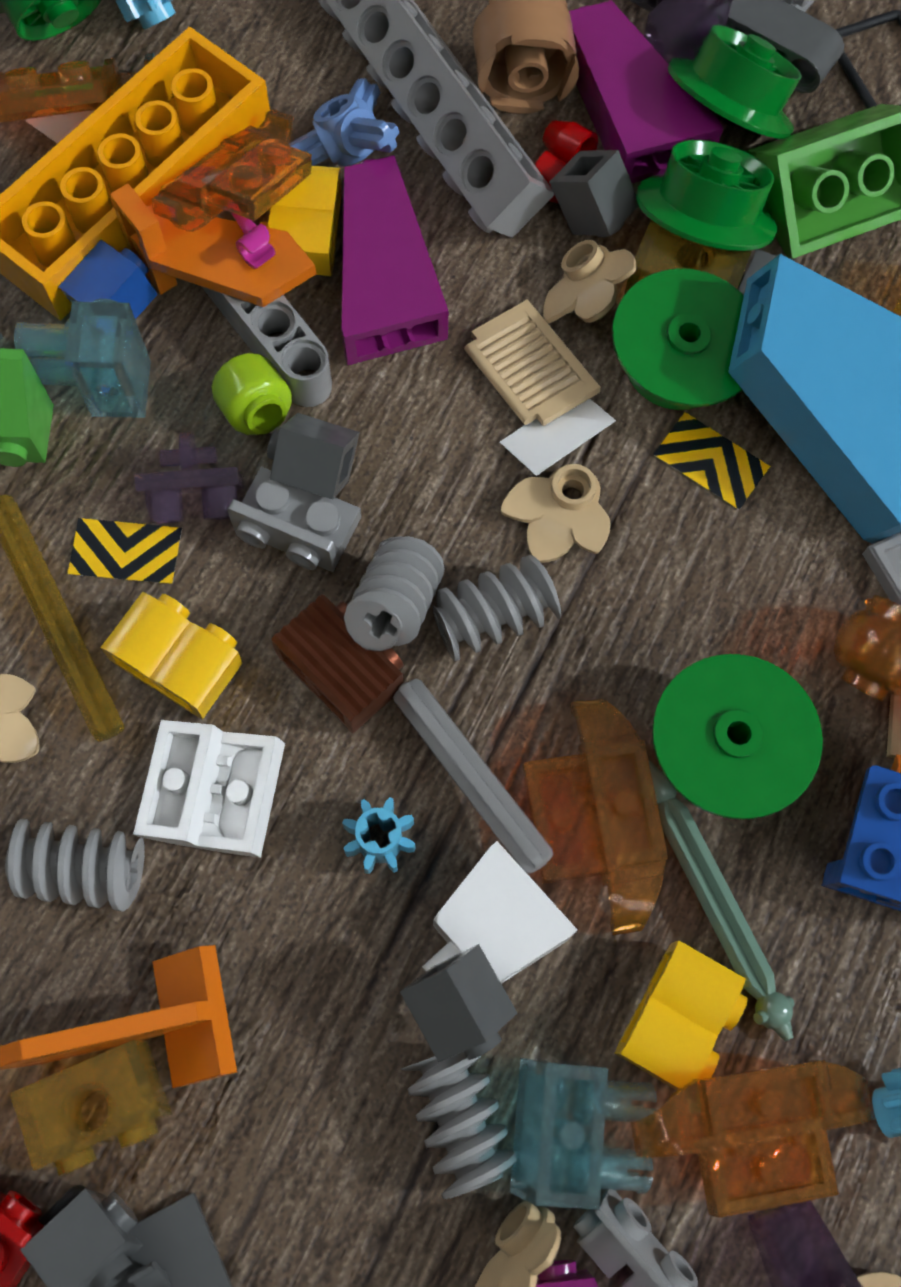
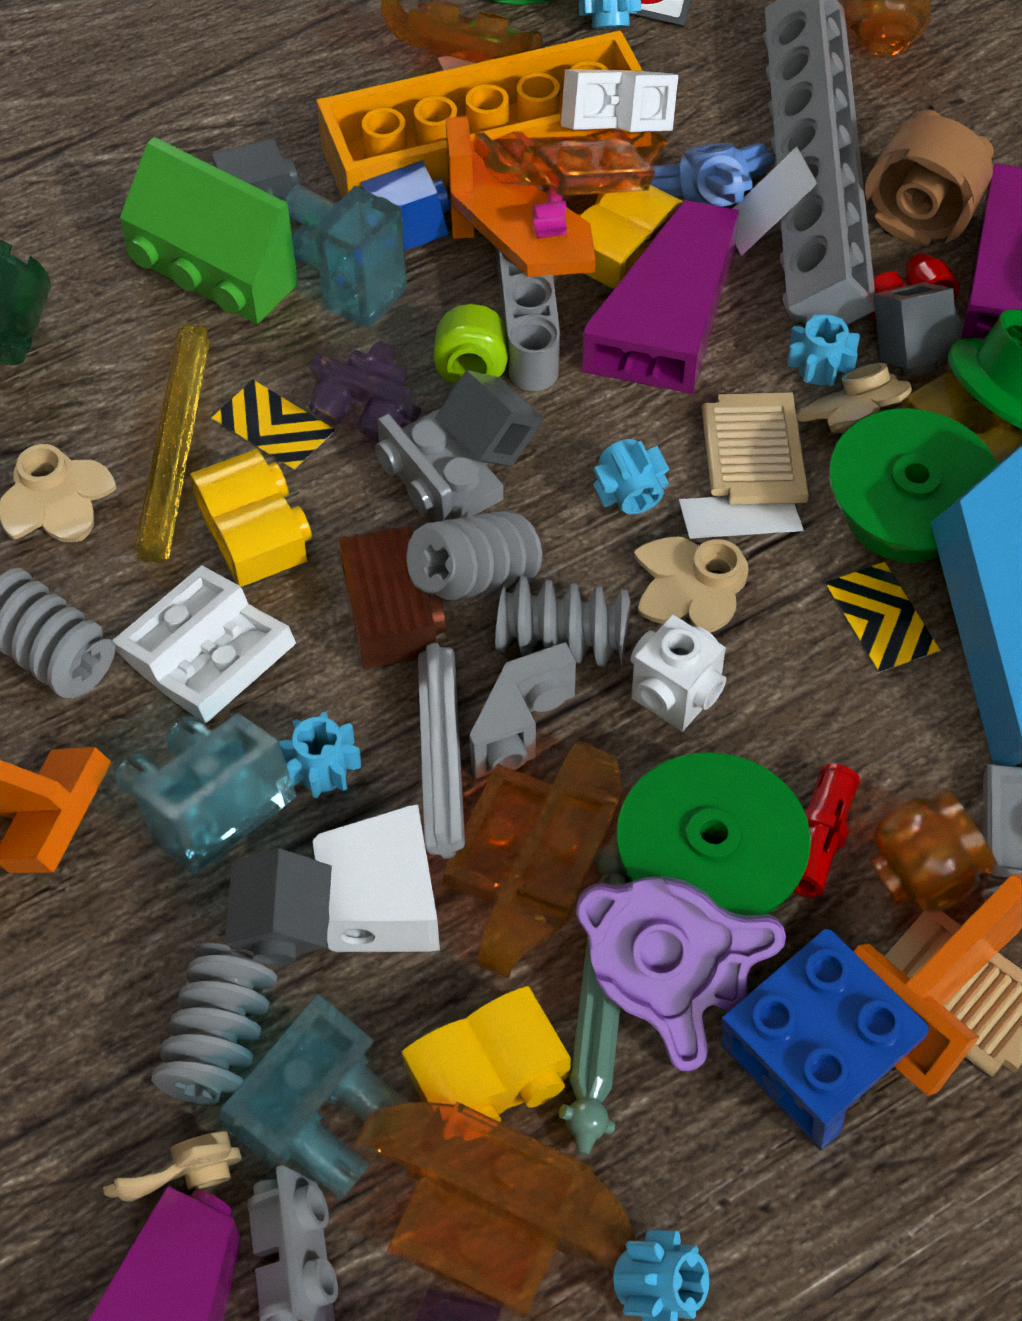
camera: 35 degrees right, 15 degrees down
(237, 99) = (619, 100): none -> white slope
(323, 925) = (212, 791): none -> clear light blue brick
(417, 118) = (772, 199): none -> white sticker
(460, 446) = (631, 476): none -> medium azure gear
(507, 720) = (505, 726): none -> light grey slope
(532, 250) = (823, 349): none -> medium azure gear
(609, 600) = (677, 671): none -> white brick
(767, 847) = (671, 954): none -> medium lavender tile
(782, 648) = (827, 824): none -> red pin

